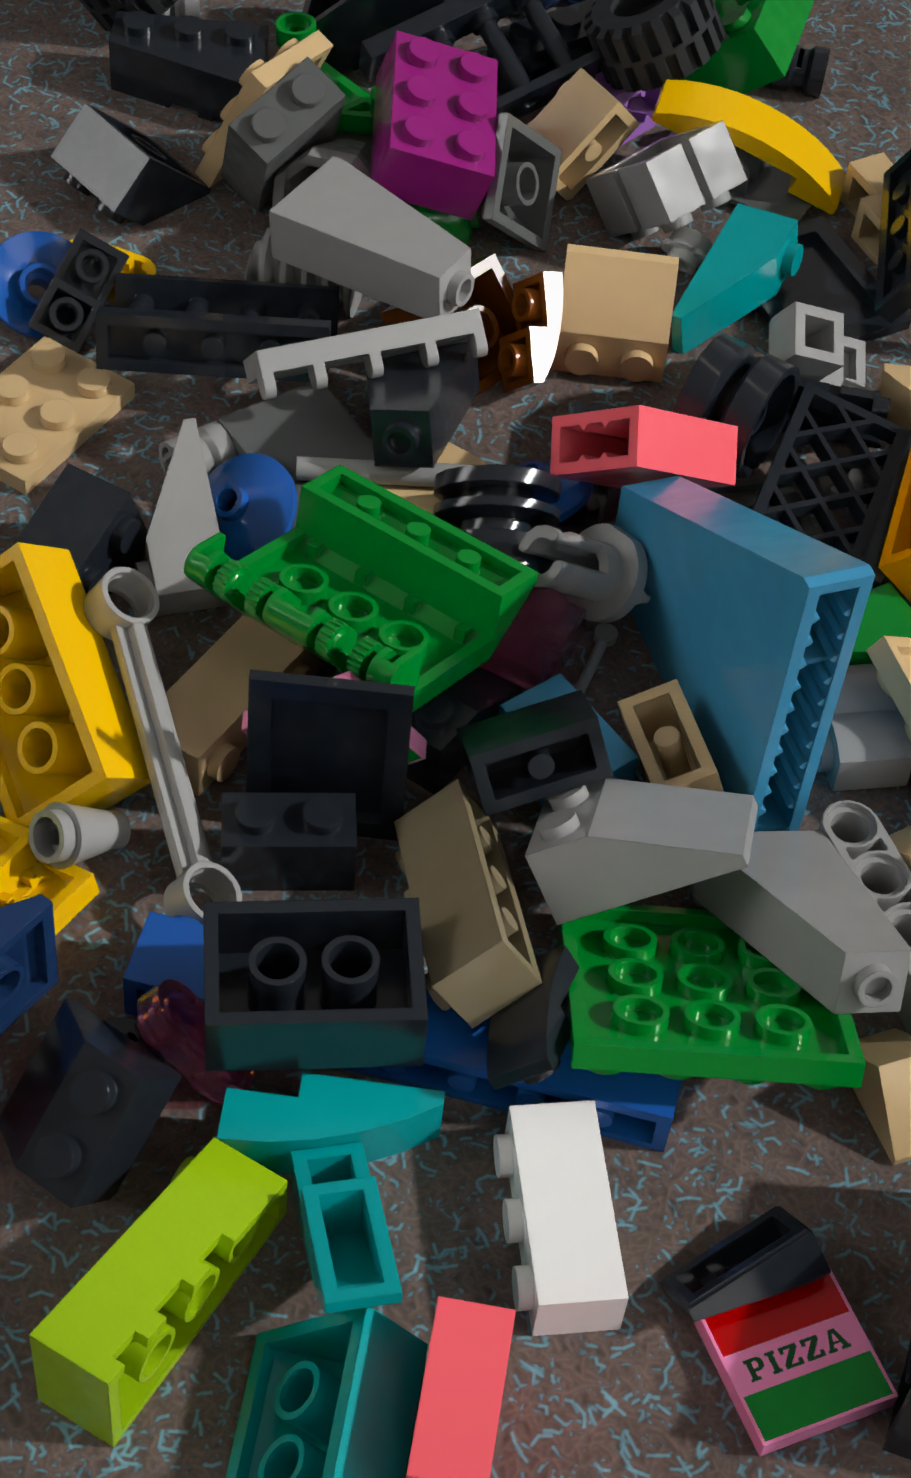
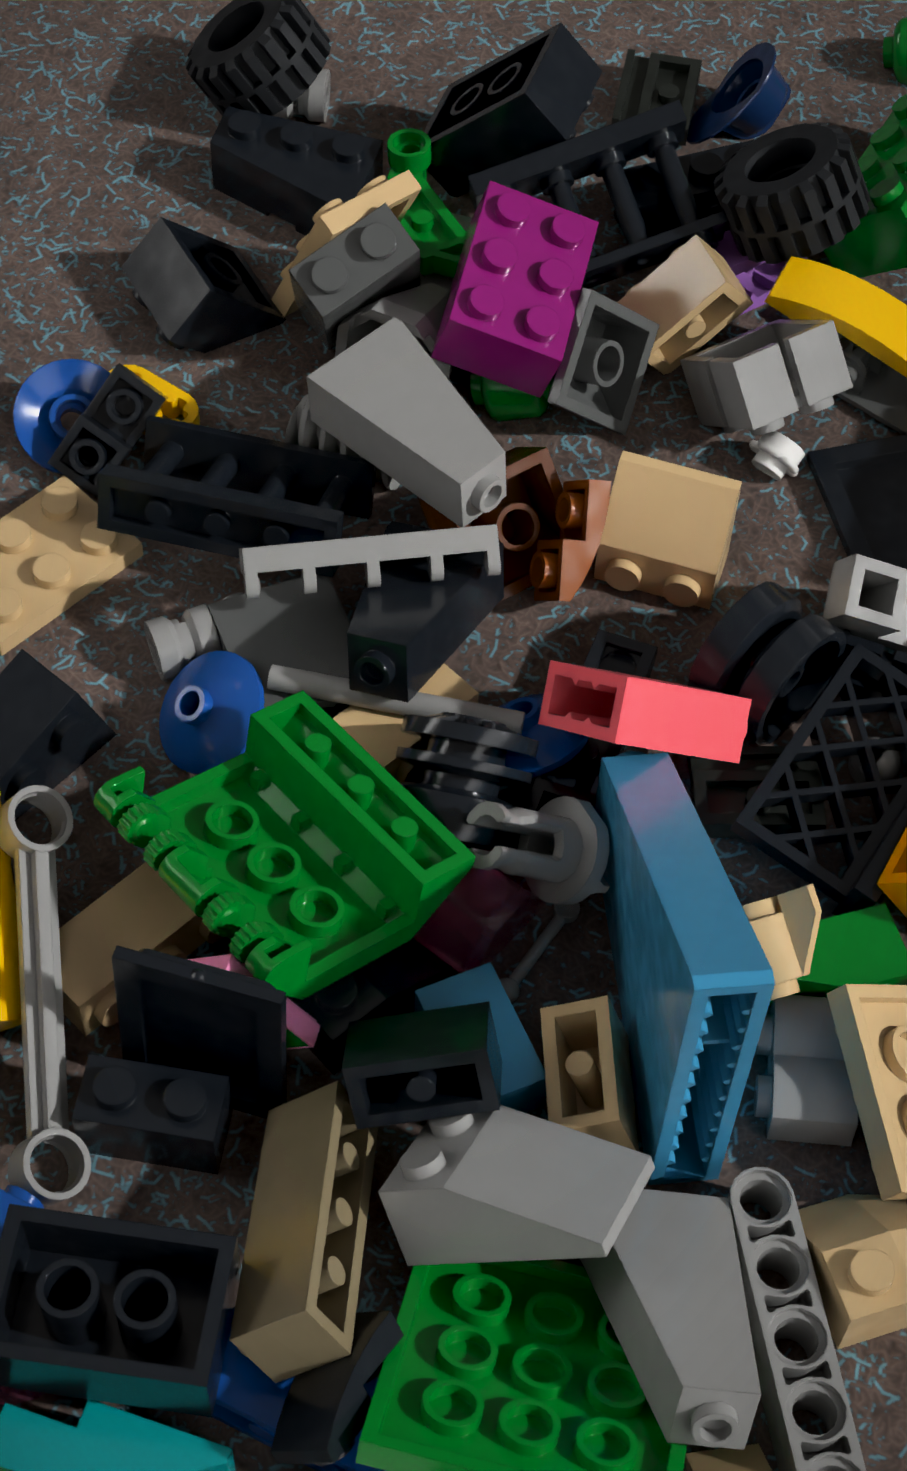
camera: 15 degrees right, 5 degrees up
(179, 523) = (137, 720): light grey slope -> none
(737, 274) = (817, 497): teal slope -> none

